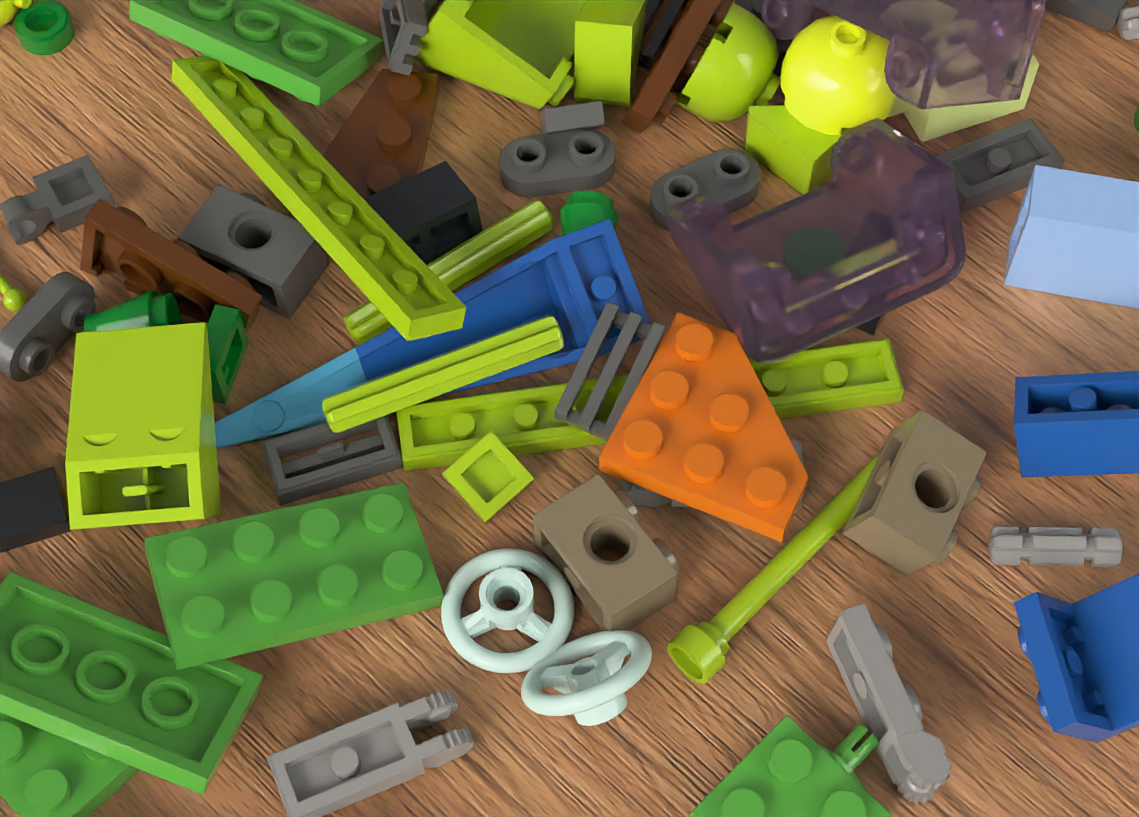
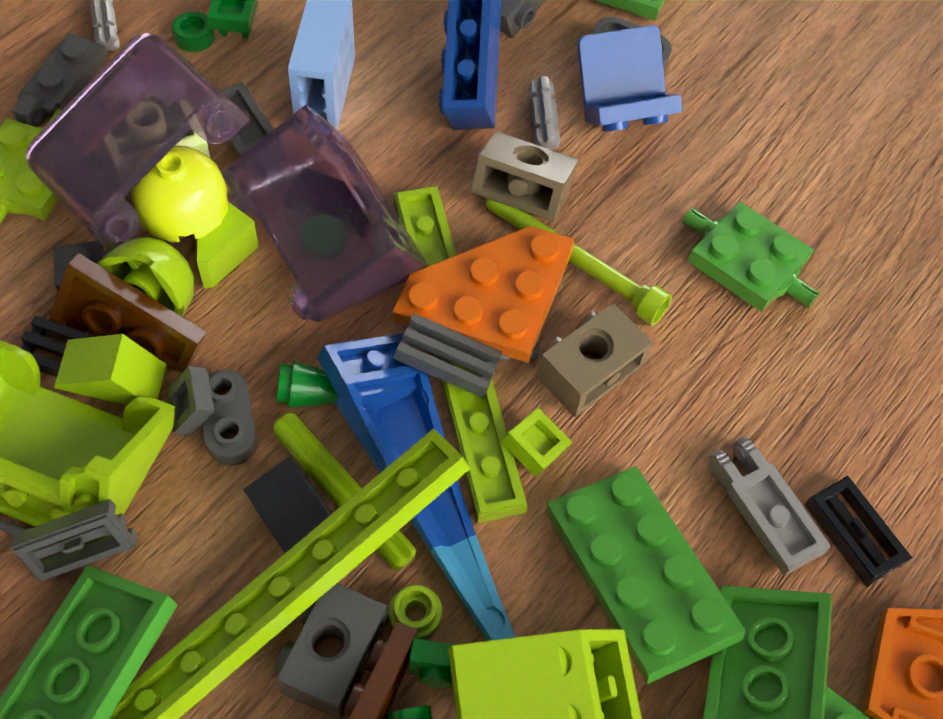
camera: 100 degrees left, 0 degrees up
(288, 322) = (416, 596): none -> lime plate
(333, 464) = (539, 604): dark grey tile -> none
(386, 132) = (199, 556): reddish brown wing -> none
(442, 374) = (465, 490): lime axle -> none
(506, 583) = (644, 406): light aqua piece -> none
(592, 686) = (706, 362): light aqua piece -> none
(708, 179) = (255, 306): dark grey plate -> none
(887, 706) = (670, 201): light grey hinge -> none

